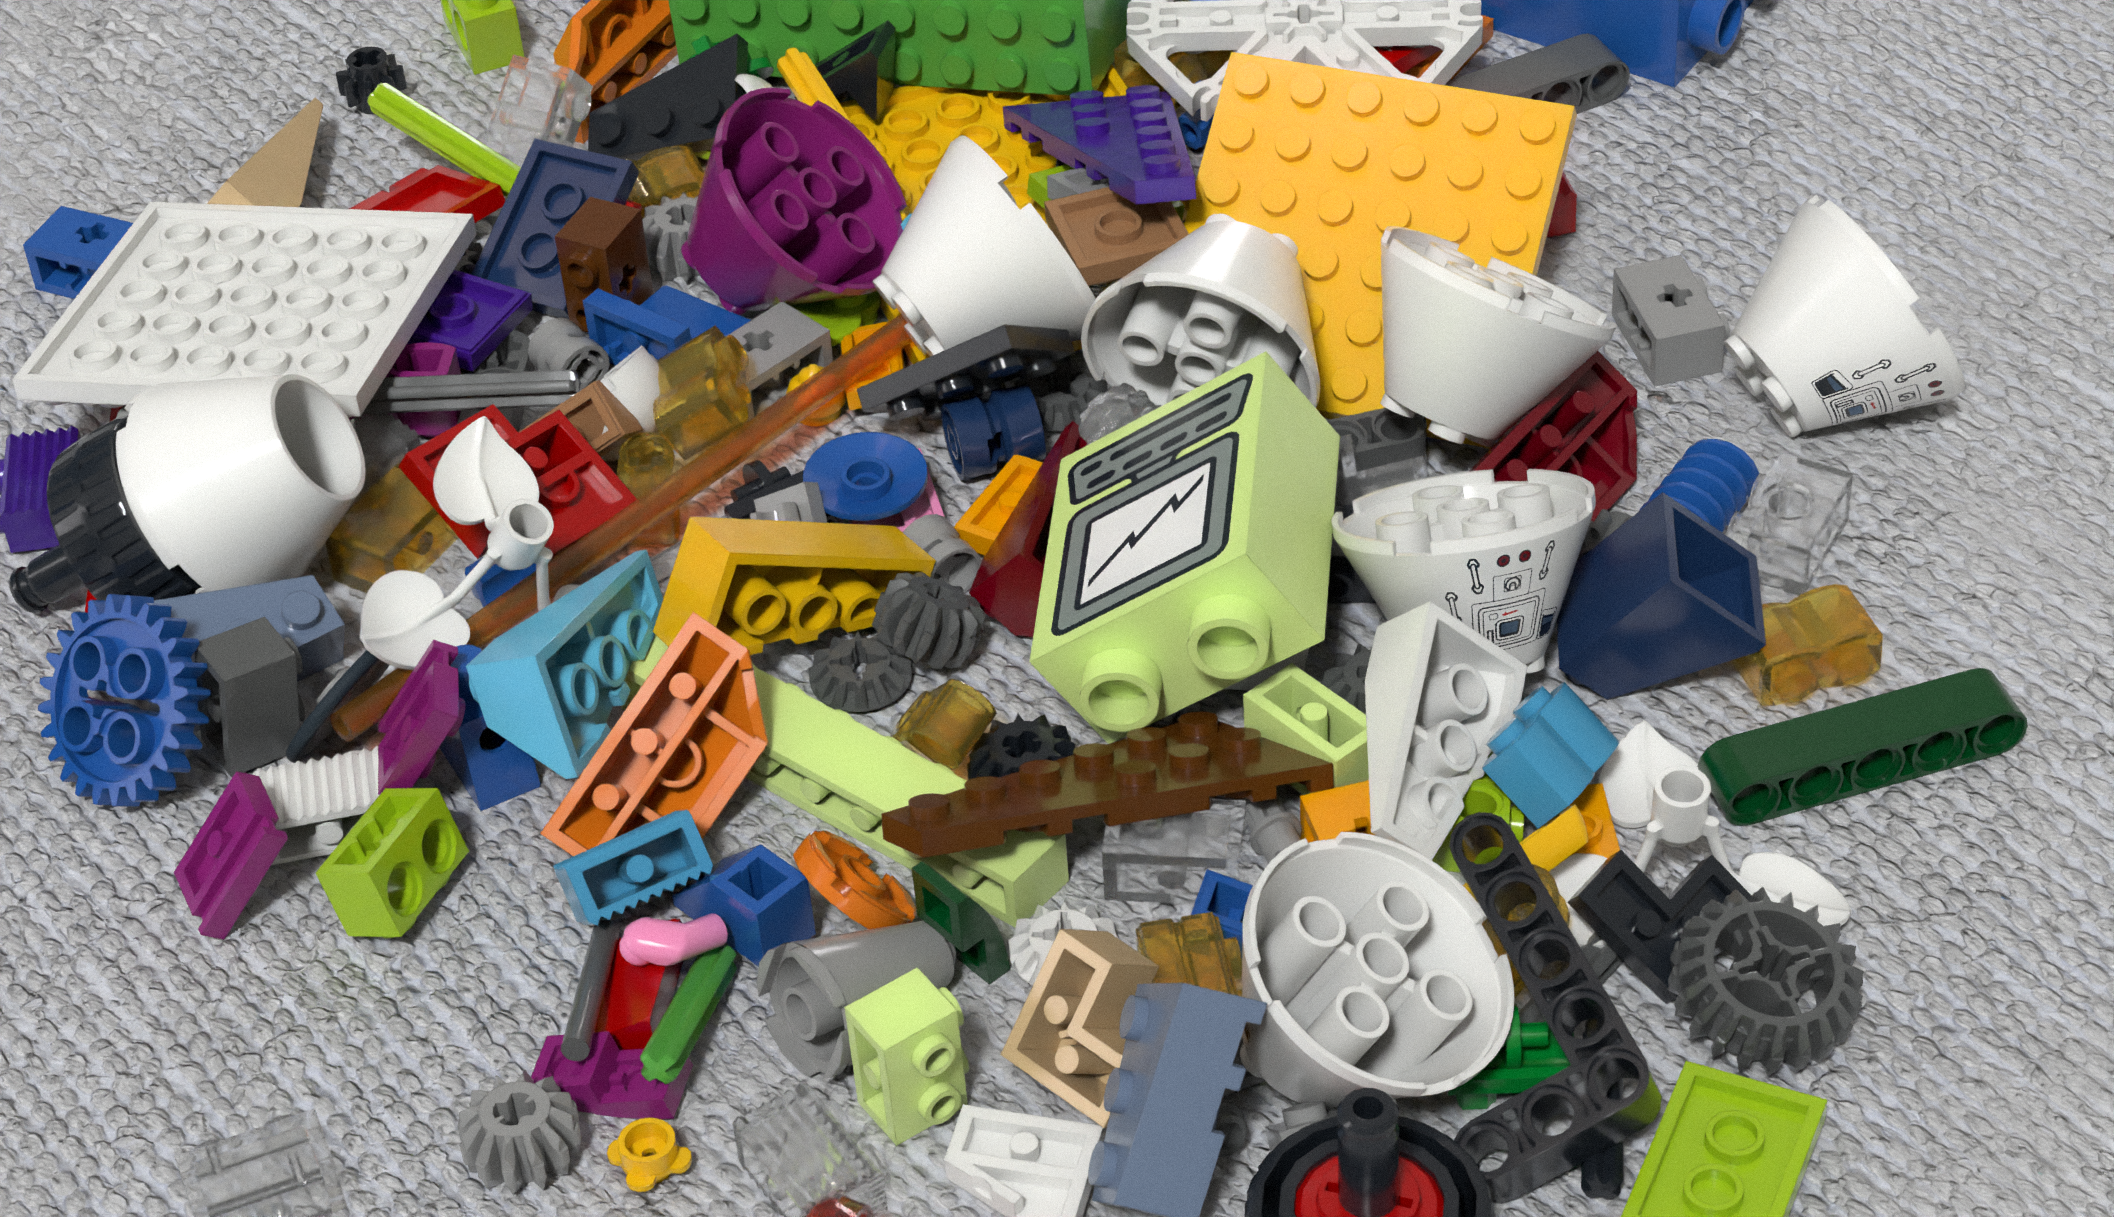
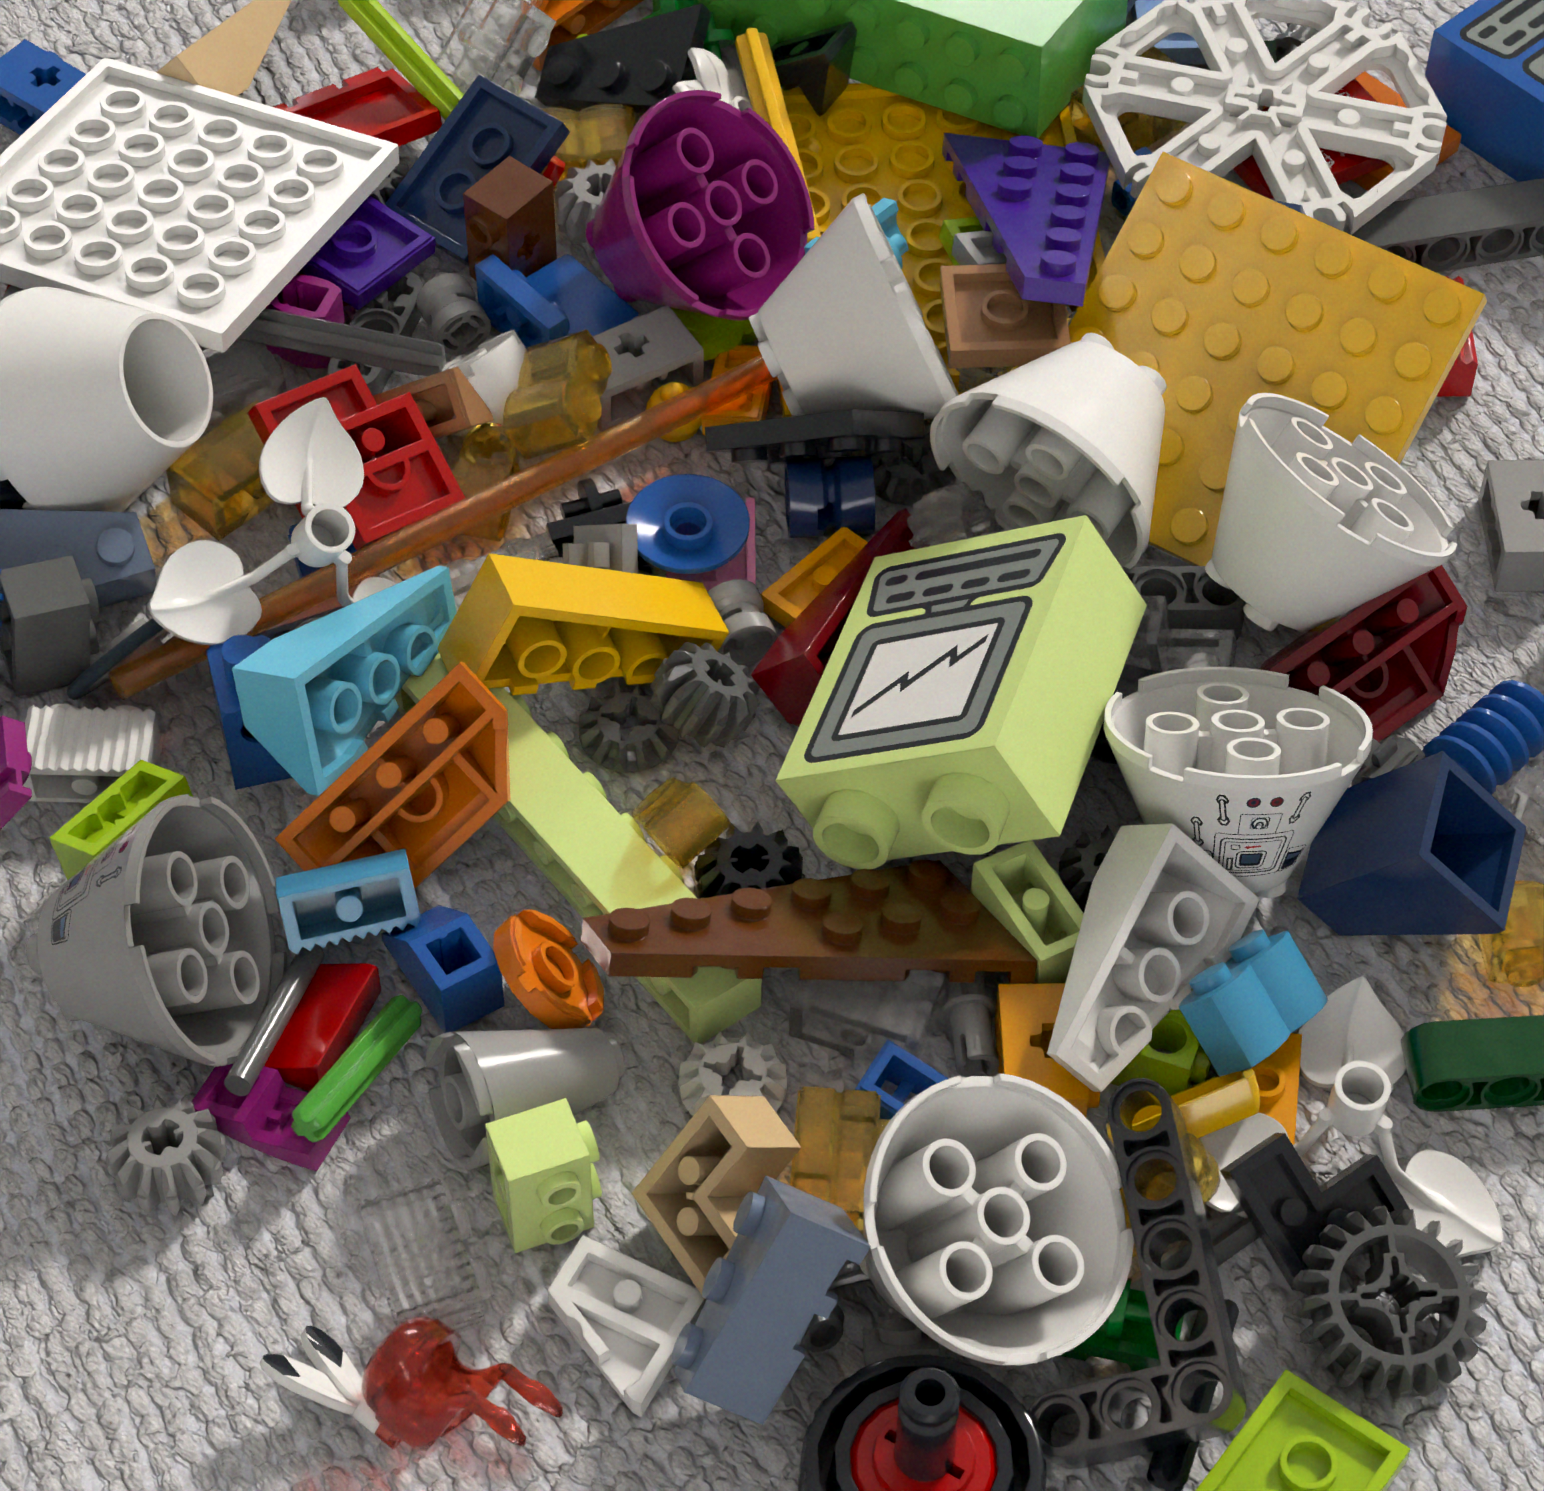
camera: 10 degrees right, 10 degrees up
(420, 719) = (187, 702): magenta plate -> none
(459, 927) = (167, 933): none -> light grey cone
(648, 1153) = (277, 1190): yellow plate -> none
(671, 942) = (359, 993): bright pink arm -> none
(961, 922) = (632, 1040): dark green slope -> none

